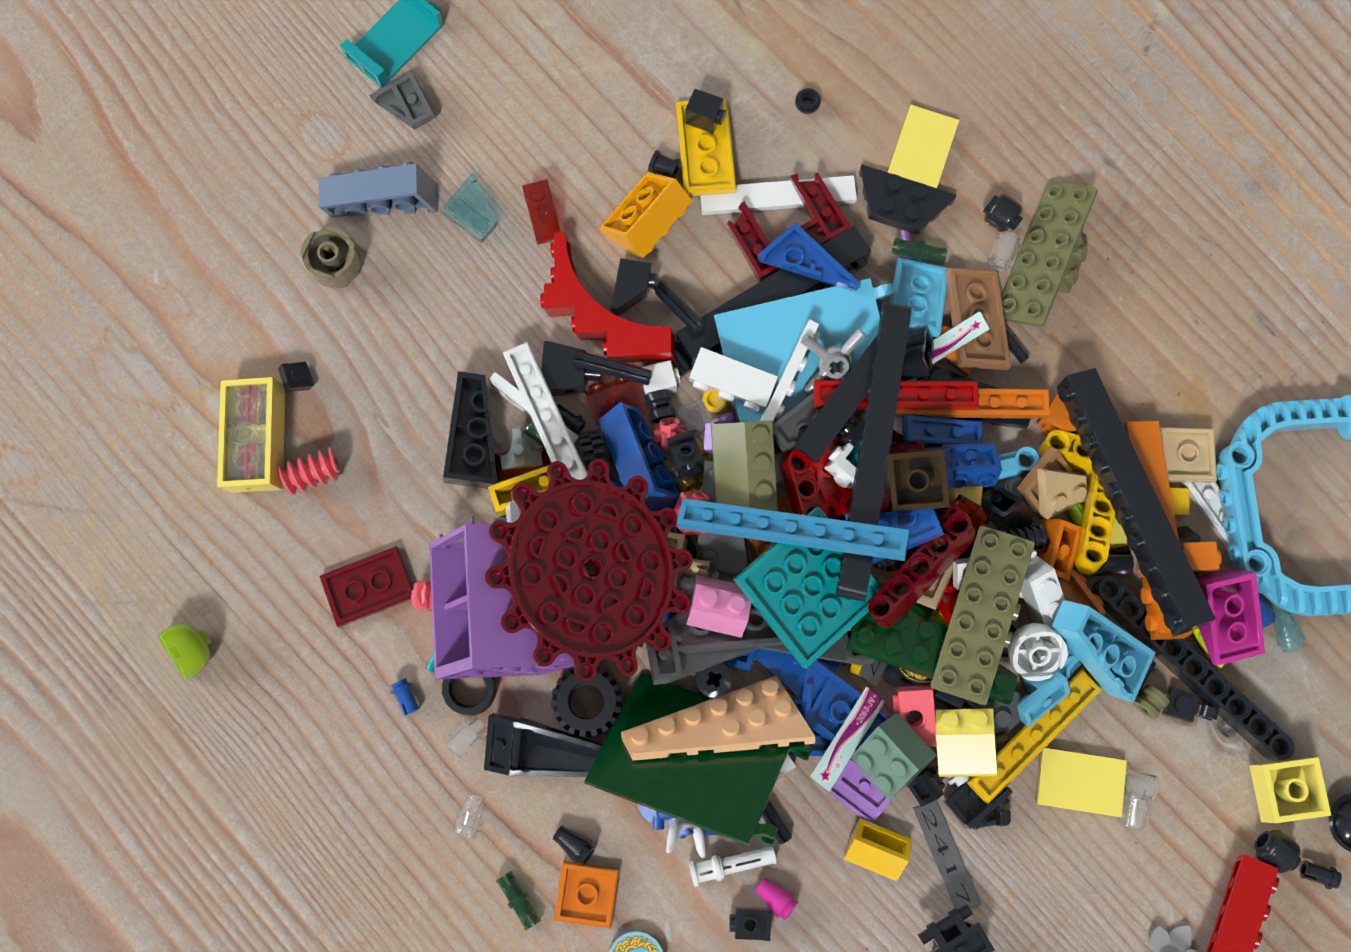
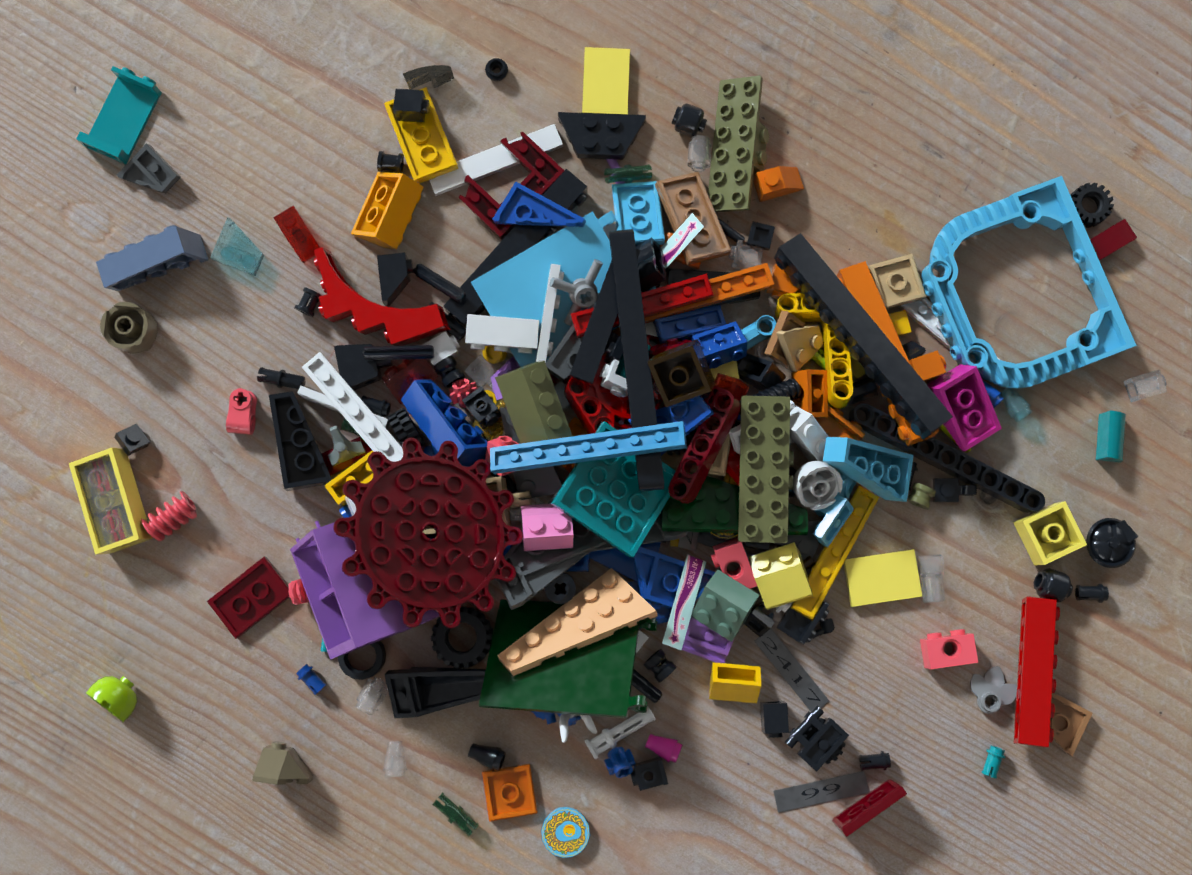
camera: 20 degrees left, 5 degrees up
(342, 782) = (280, 766): none -> dark tan slope
(421, 387) = (241, 415): none -> coral piece
(475, 359) = (281, 378): none -> black axle
(522, 290) = (301, 307): none -> black bush
(721, 899) = (620, 762): none -> blue gear
(740, 87) = (435, 74): none -> clear smoke slope
(800, 809) = (664, 669): none -> black wheel
(912, 904) = (774, 718): none -> black brick
(1023, 376) = (745, 256): none -> clear bracket
(1047, 360) = (760, 235): none -> black plate
(1081, 308) = (777, 182): none -> orange slope
(1153, 891) = (963, 650): none -> coral brick

